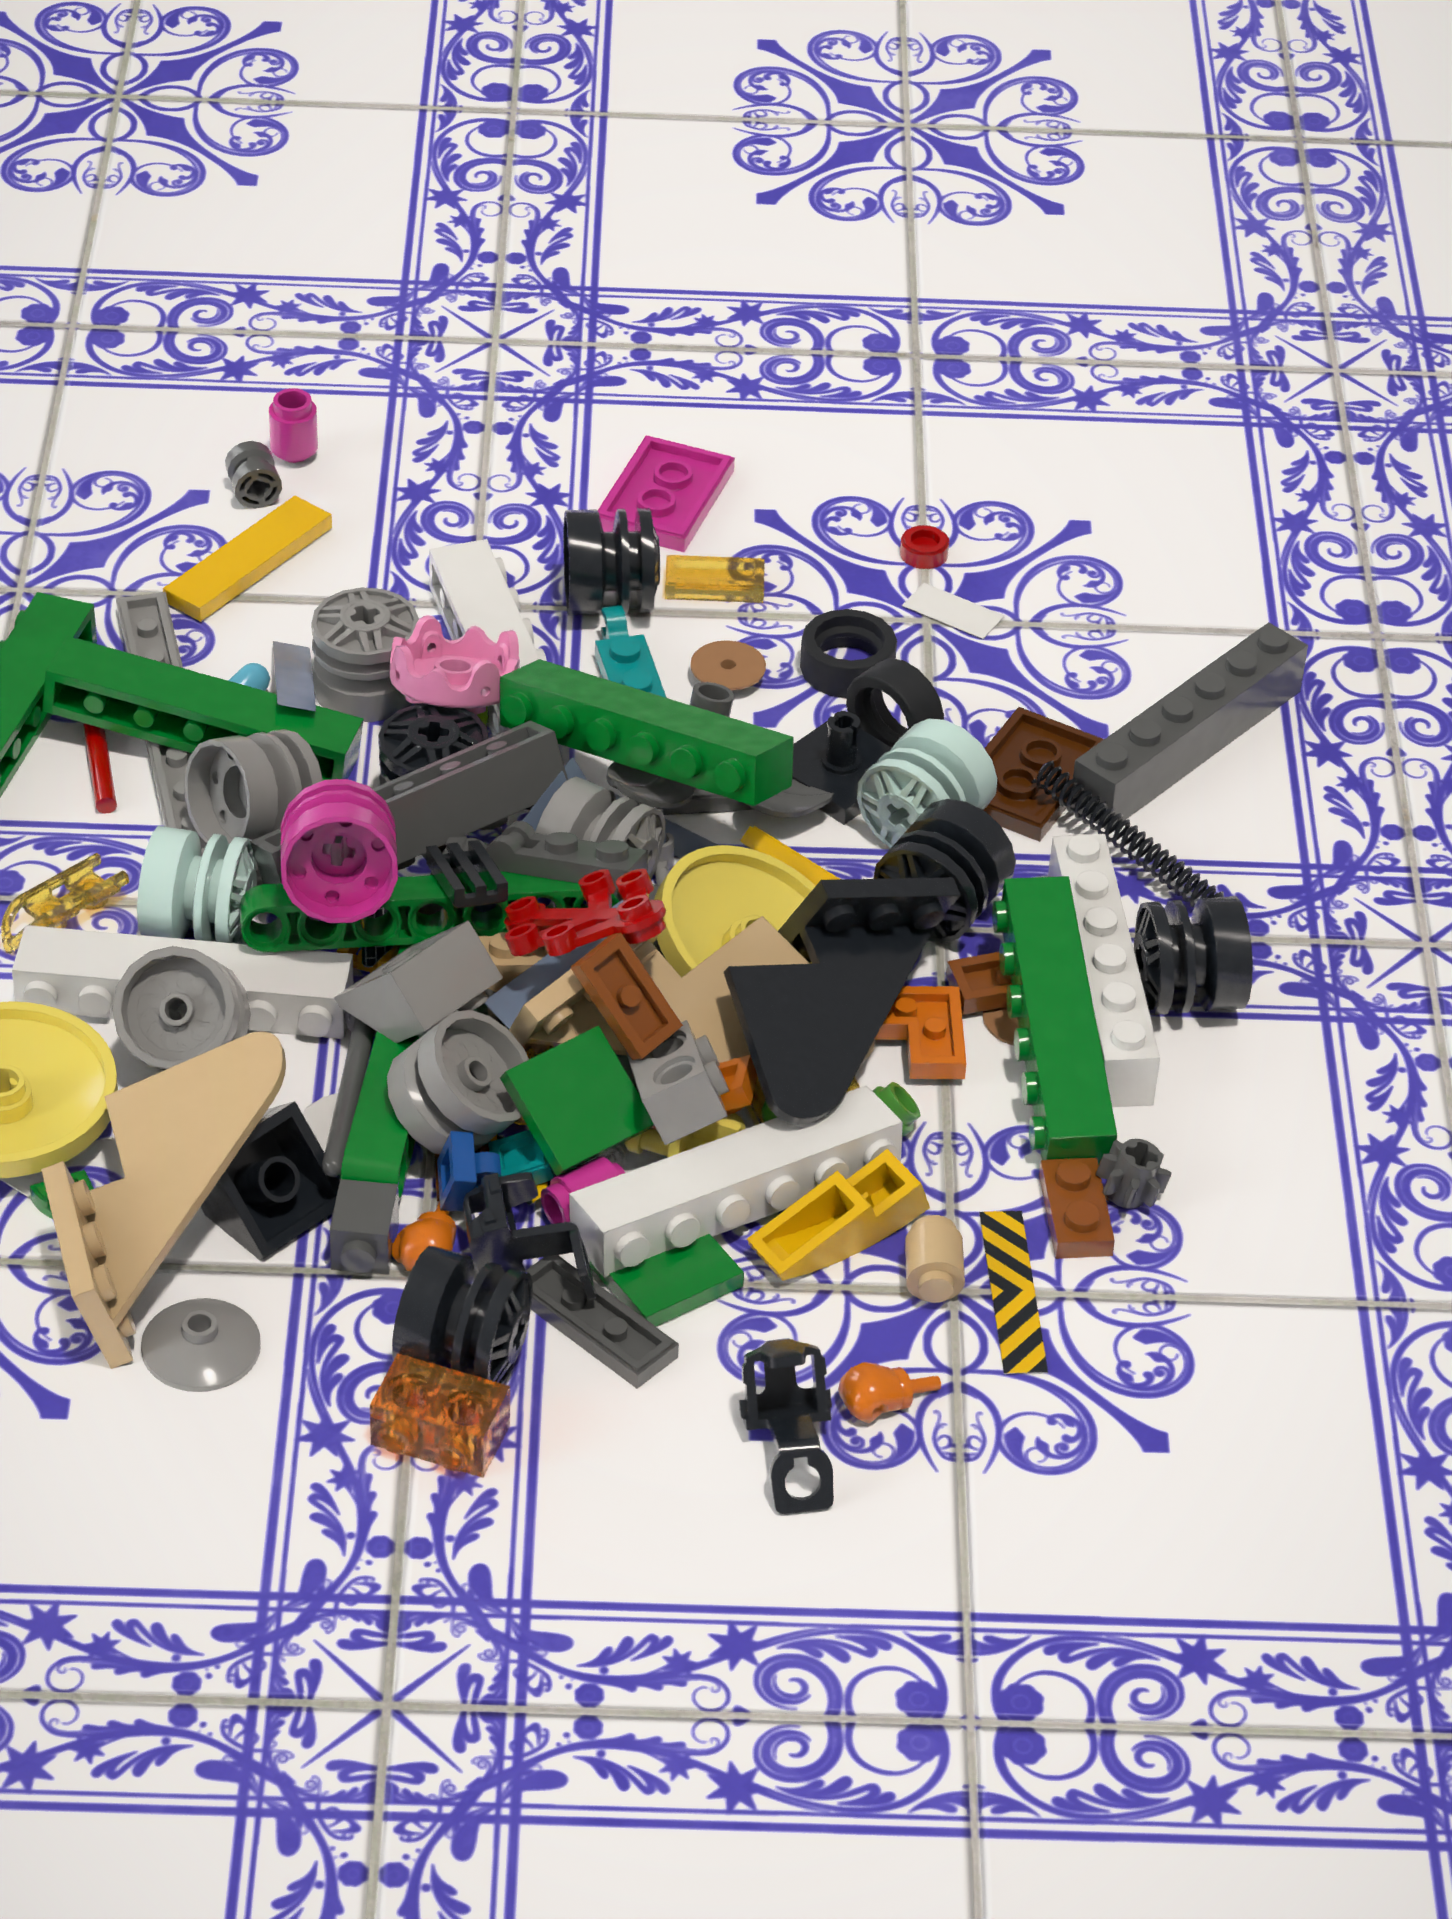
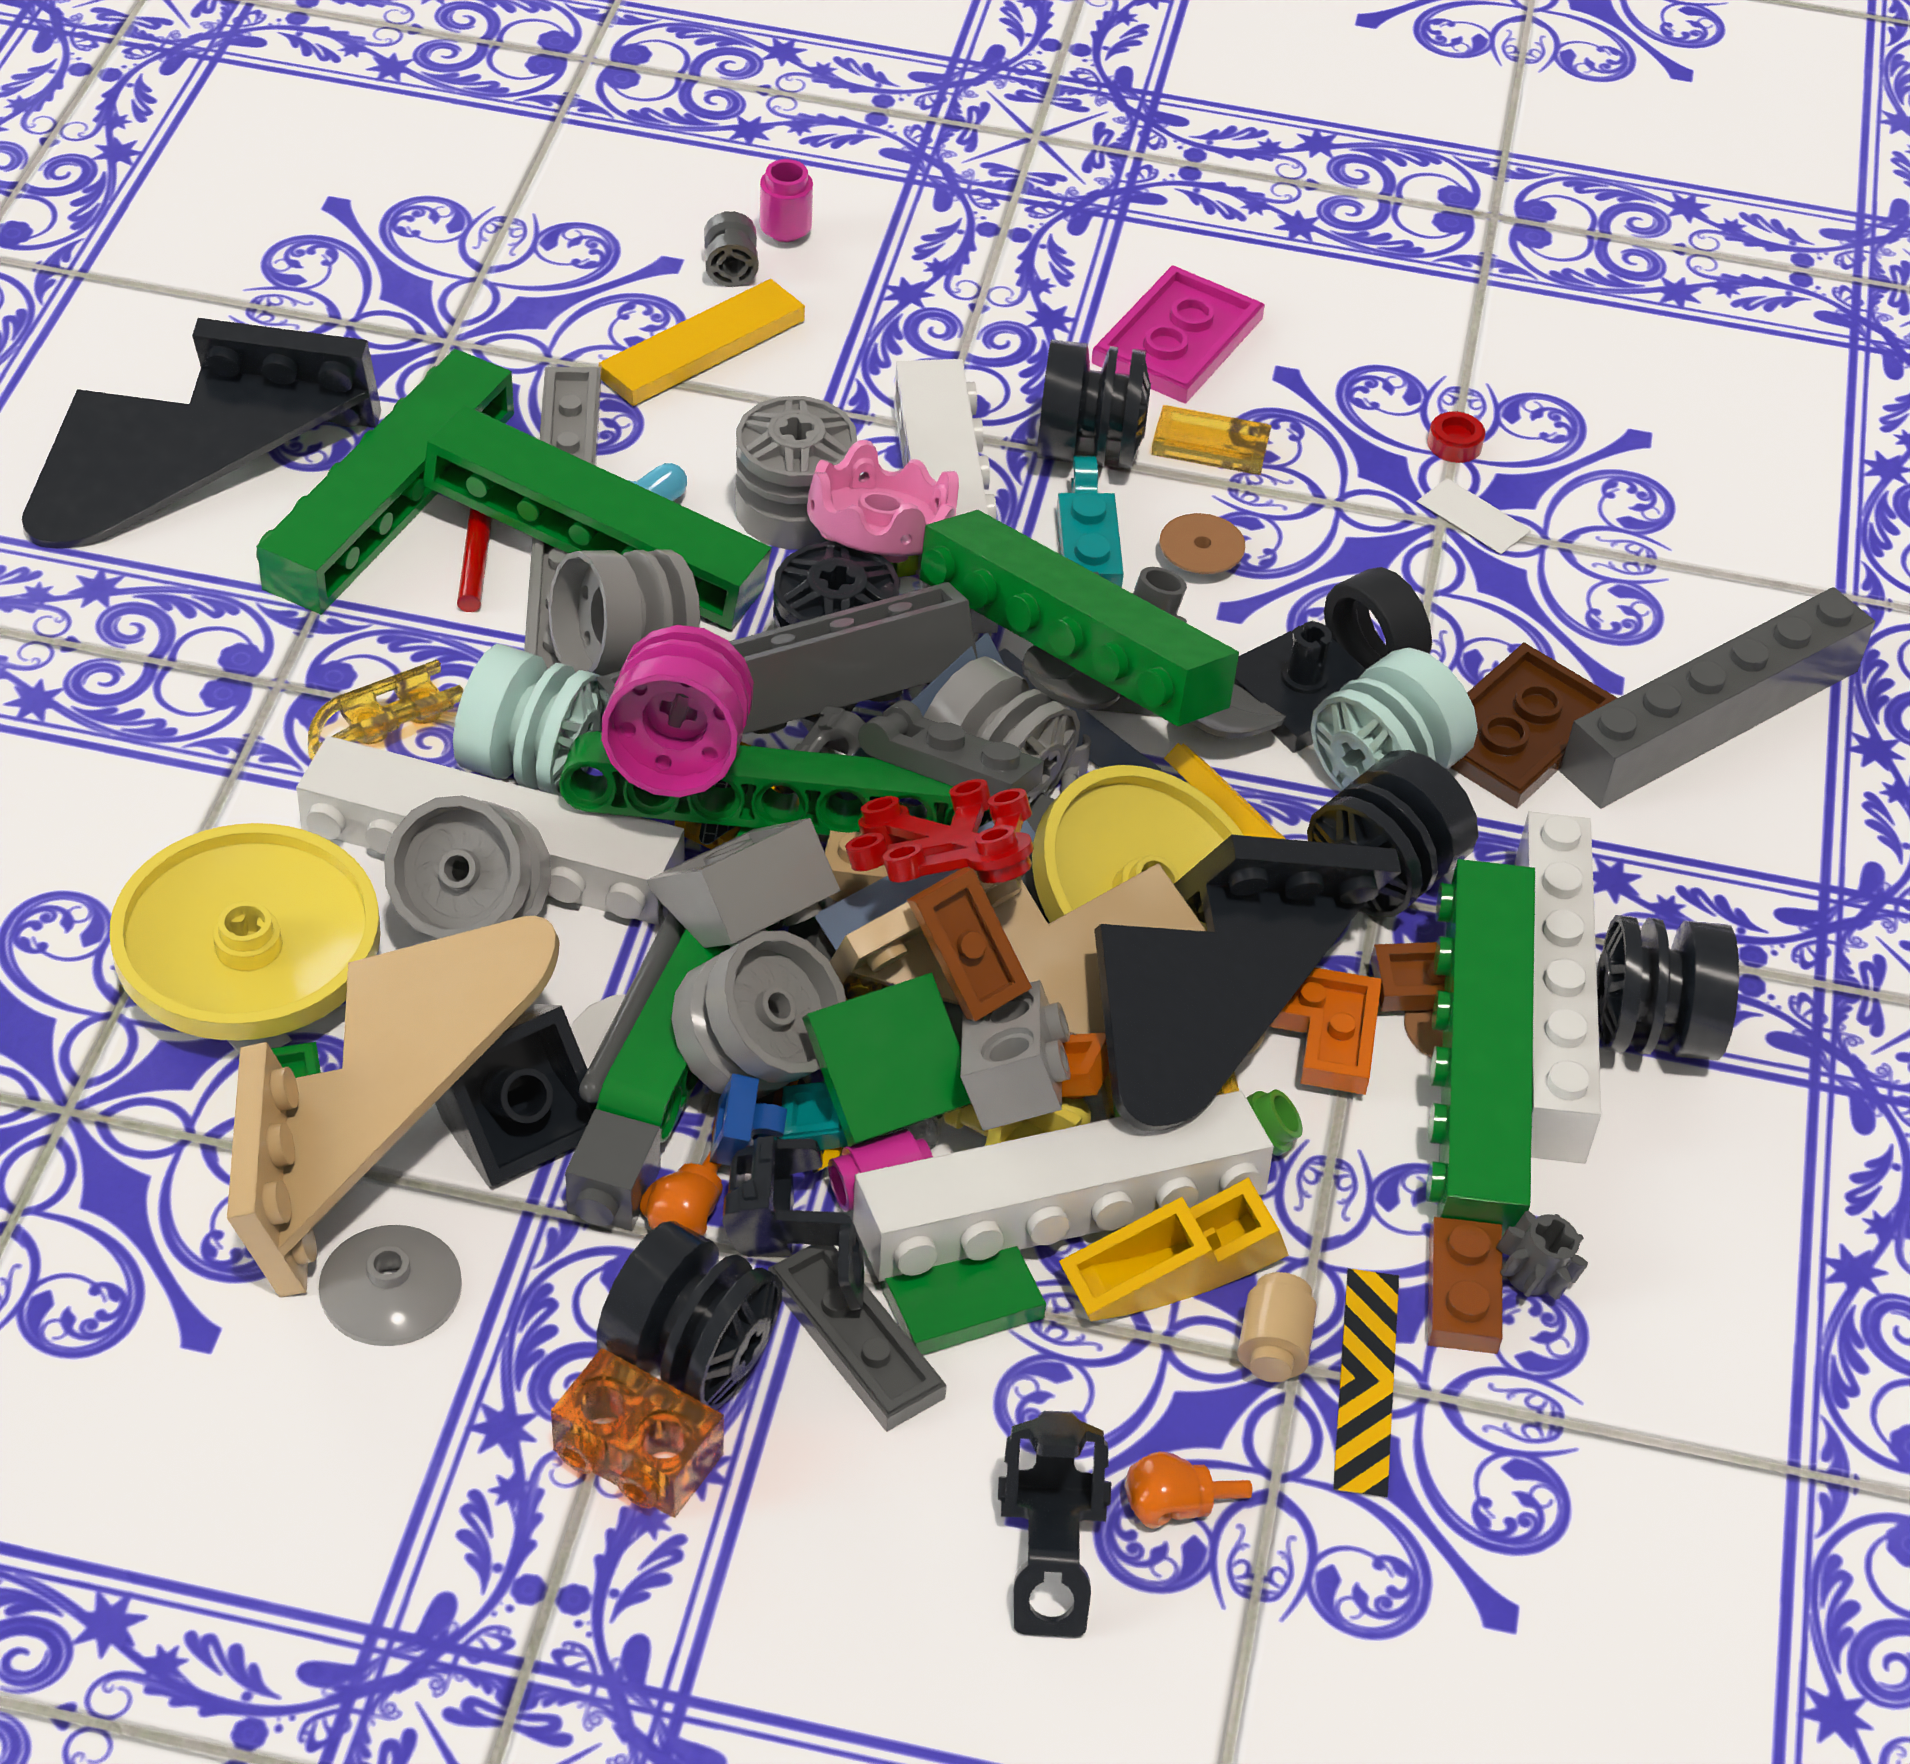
camera: 10 degrees right, 5 degrees up
(294, 676) = (709, 487): sand blue sticker -> none
(477, 874) = (828, 738): black tile -> none
(838, 630) = (1337, 520): black tyre -> none
(1127, 830) = (1621, 820): black piece -> none

